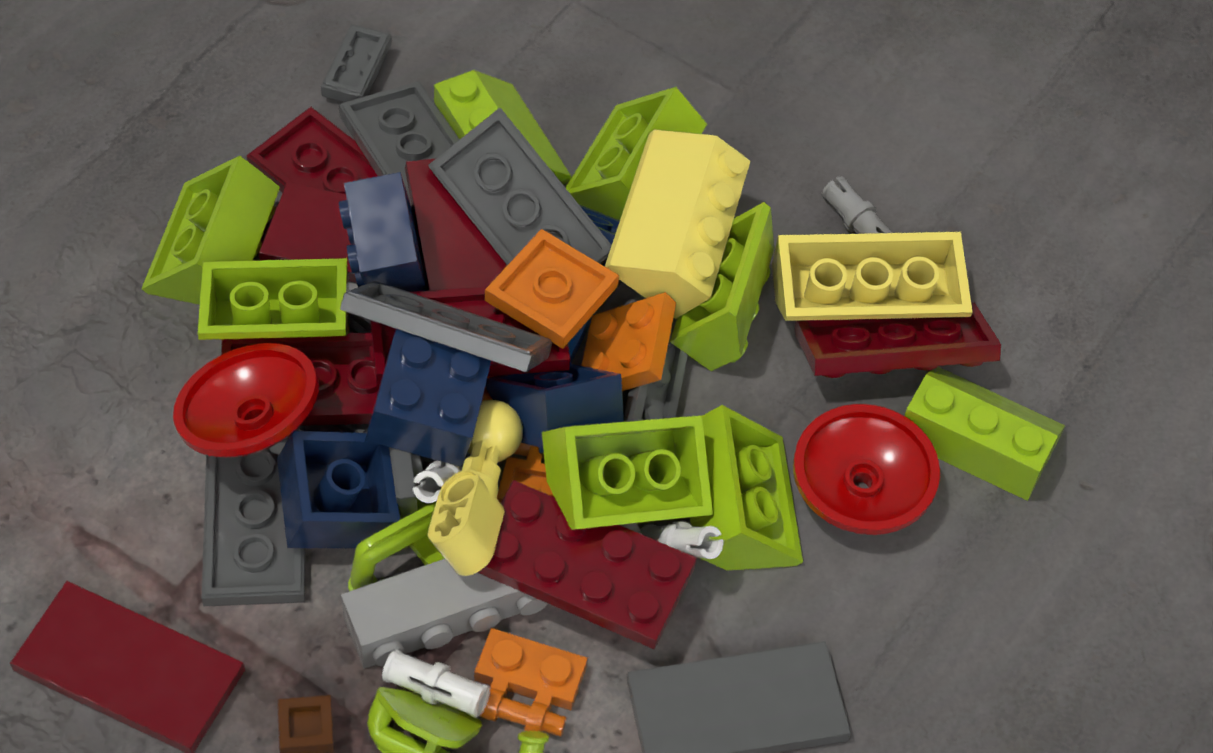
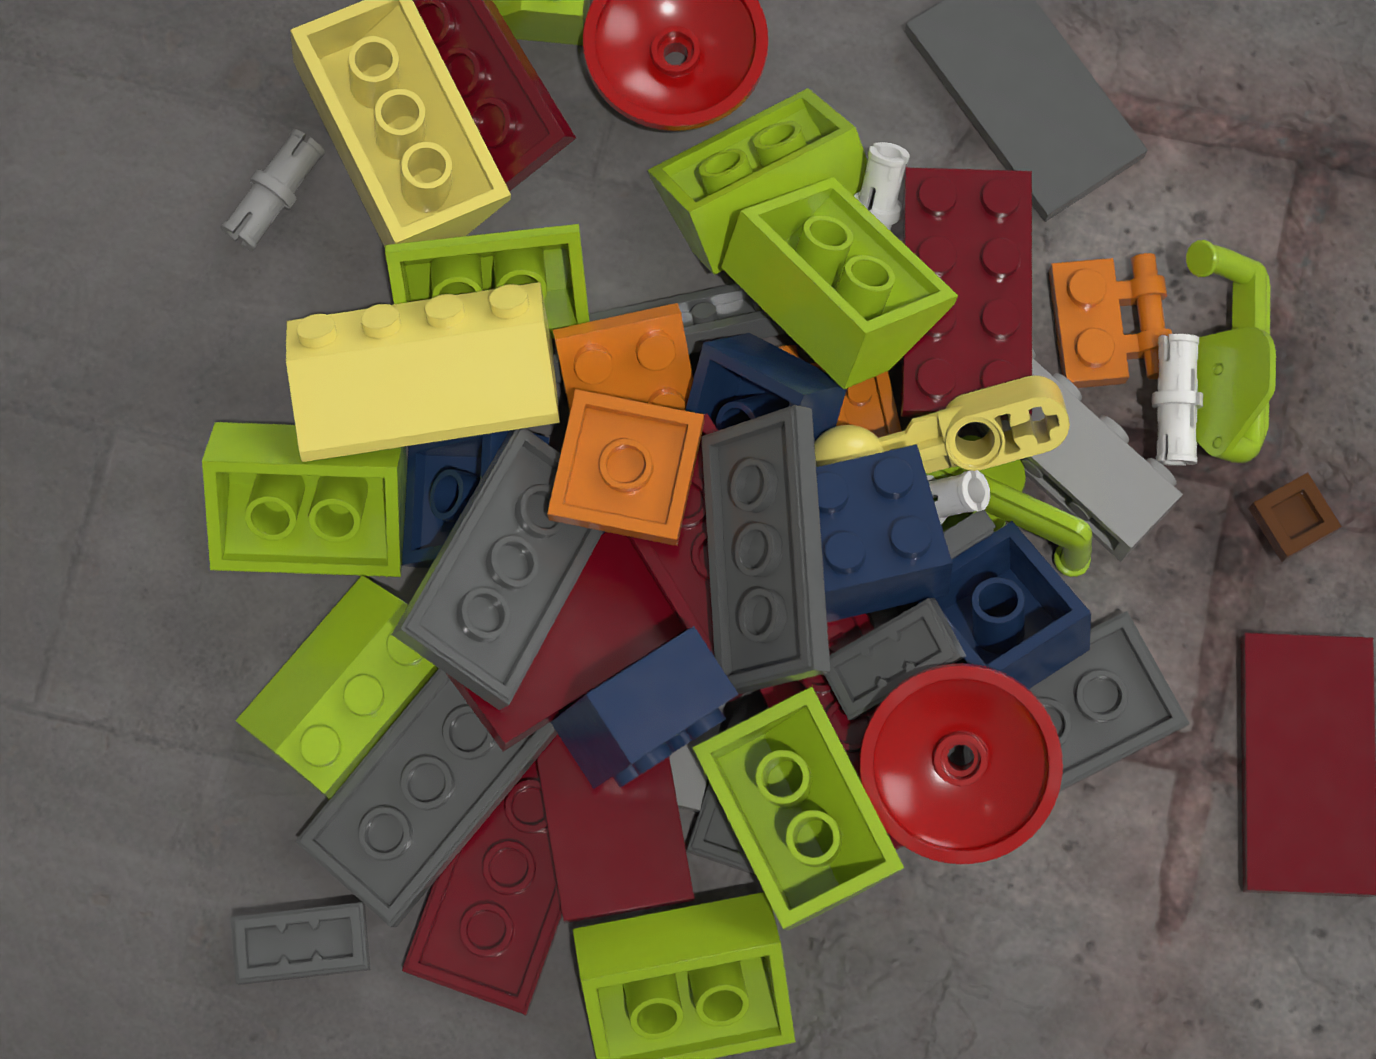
camera: 110 degrees left, 20 degrees up
(341, 397) = (889, 655): none -> dark grey plate

